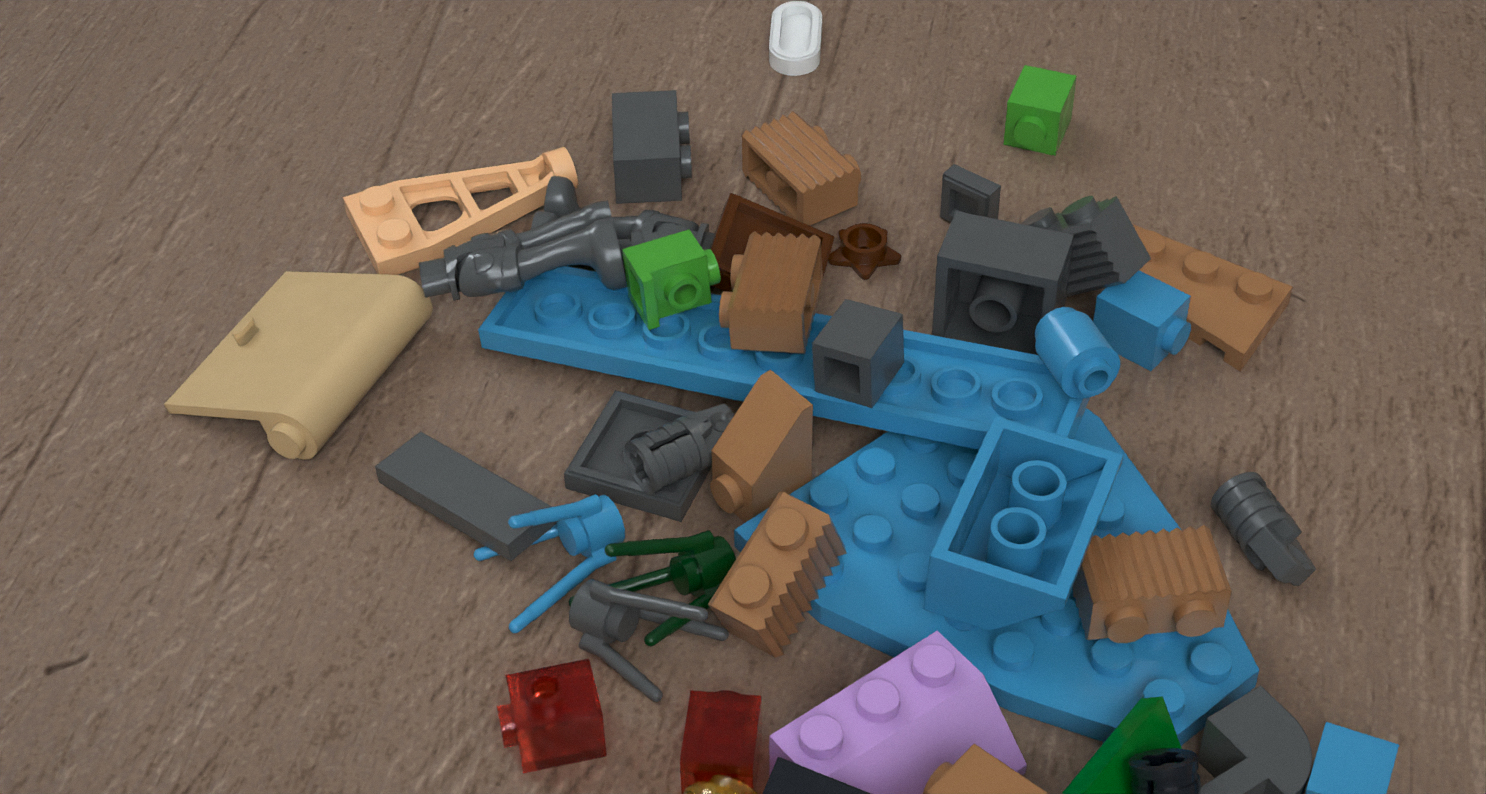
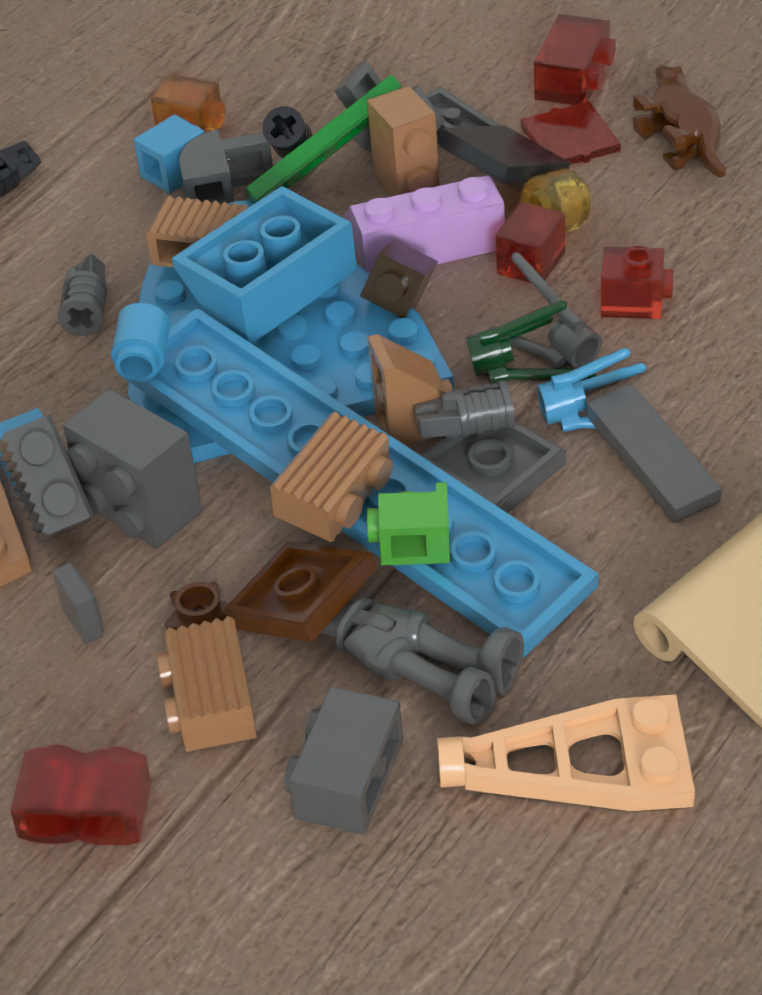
camera: 155 degrees left, 0 degrees up
(508, 260) = (563, 600): dark grey piece -> none
(778, 574) = (443, 302): medium nougat brick -> none
(795, 38) = (89, 911): white tile -> none
(849, 78) = (81, 796): none -> clear red brick
(858, 353) = (298, 394): dark grey brick -> none
(859, 606) = (398, 278): none -> dark brown brick

